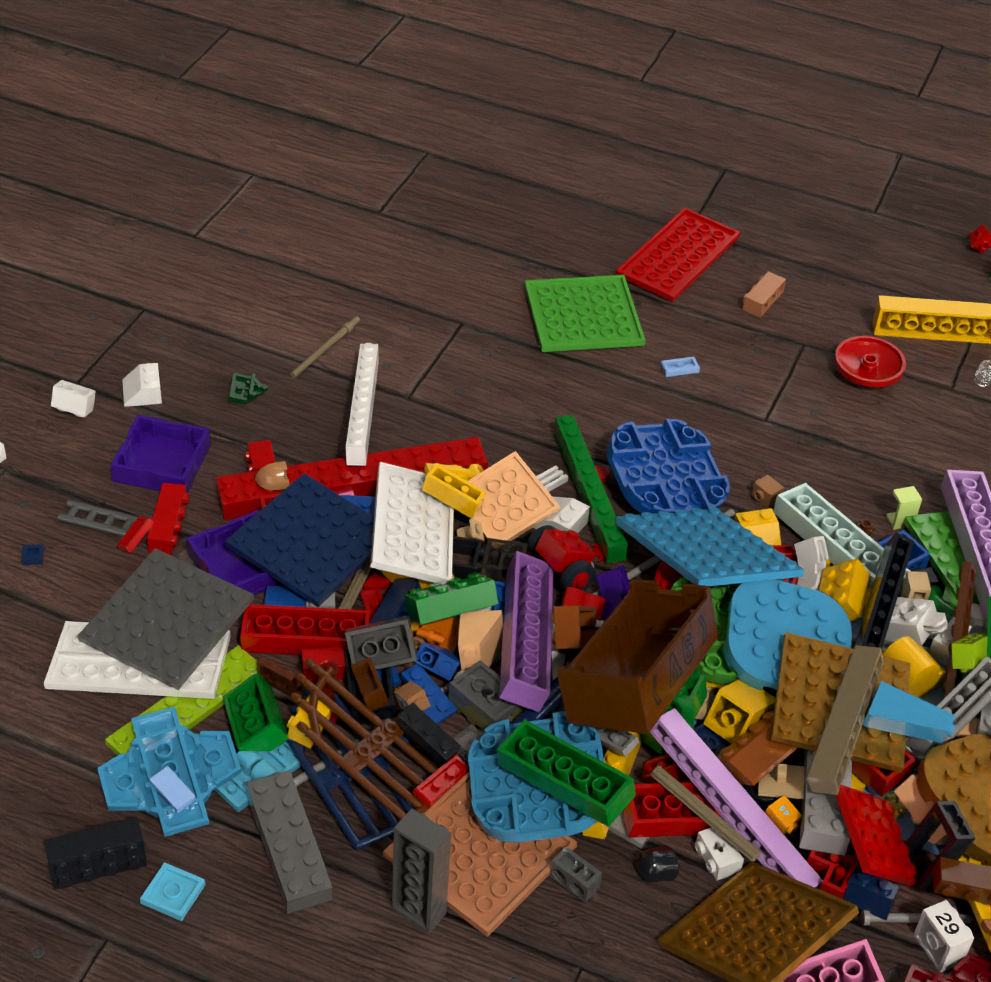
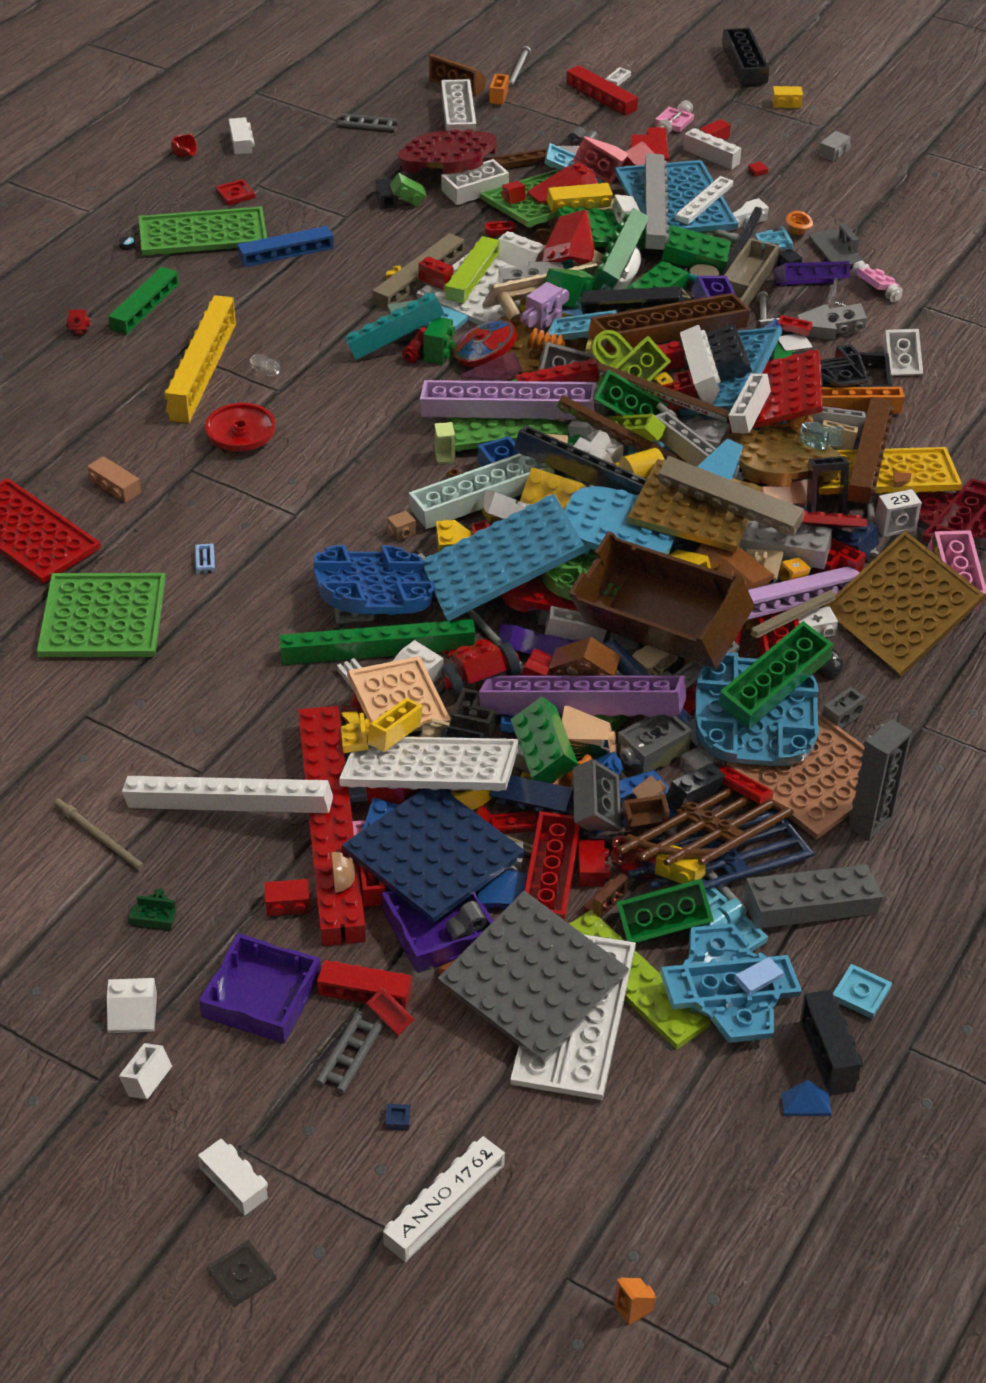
camera: 80 degrees left, 0 degrees up
(35, 850) = (806, 1100): none -> blue slope
(232, 570) = (466, 921): none -> dark grey axle

